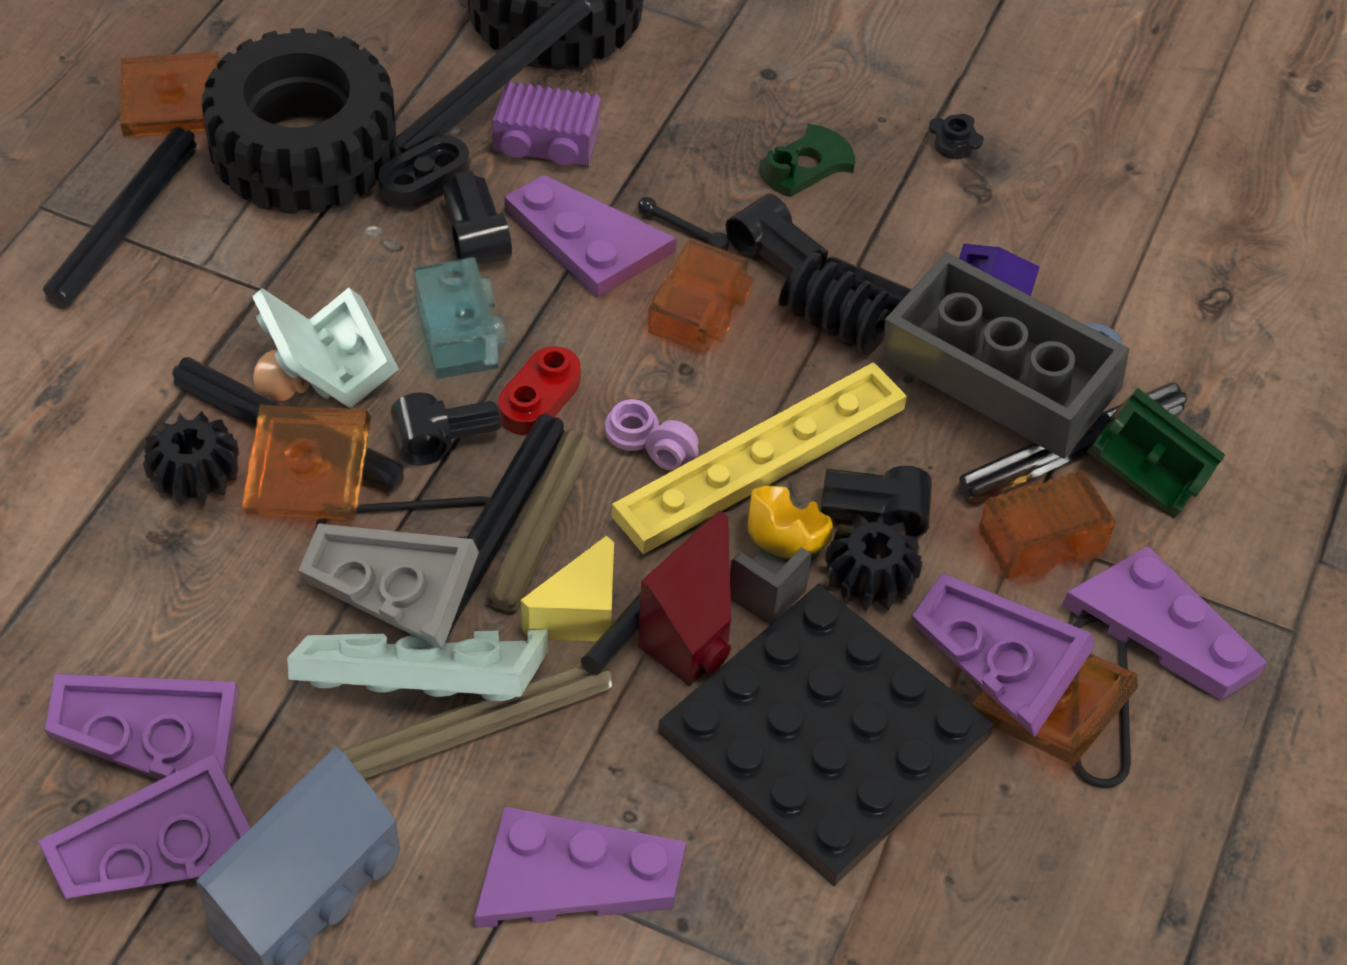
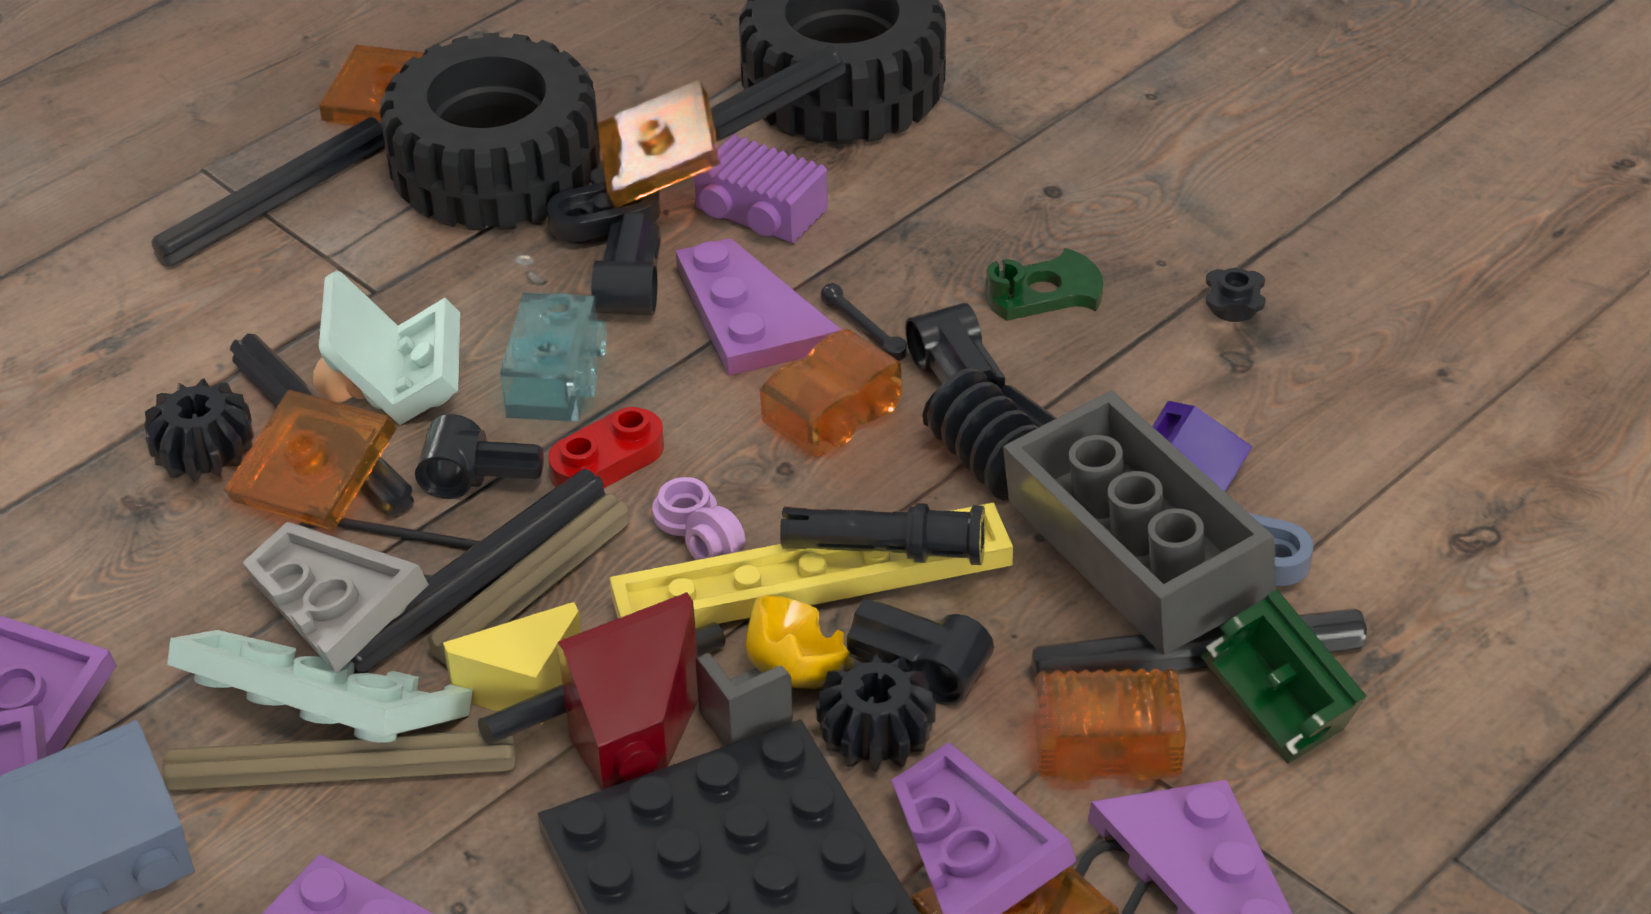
camera: 25 degrees right, 10 degrees down
(456, 104) = (658, 143): none -> clear orange plate
(840, 406) = (914, 532): none -> black pin

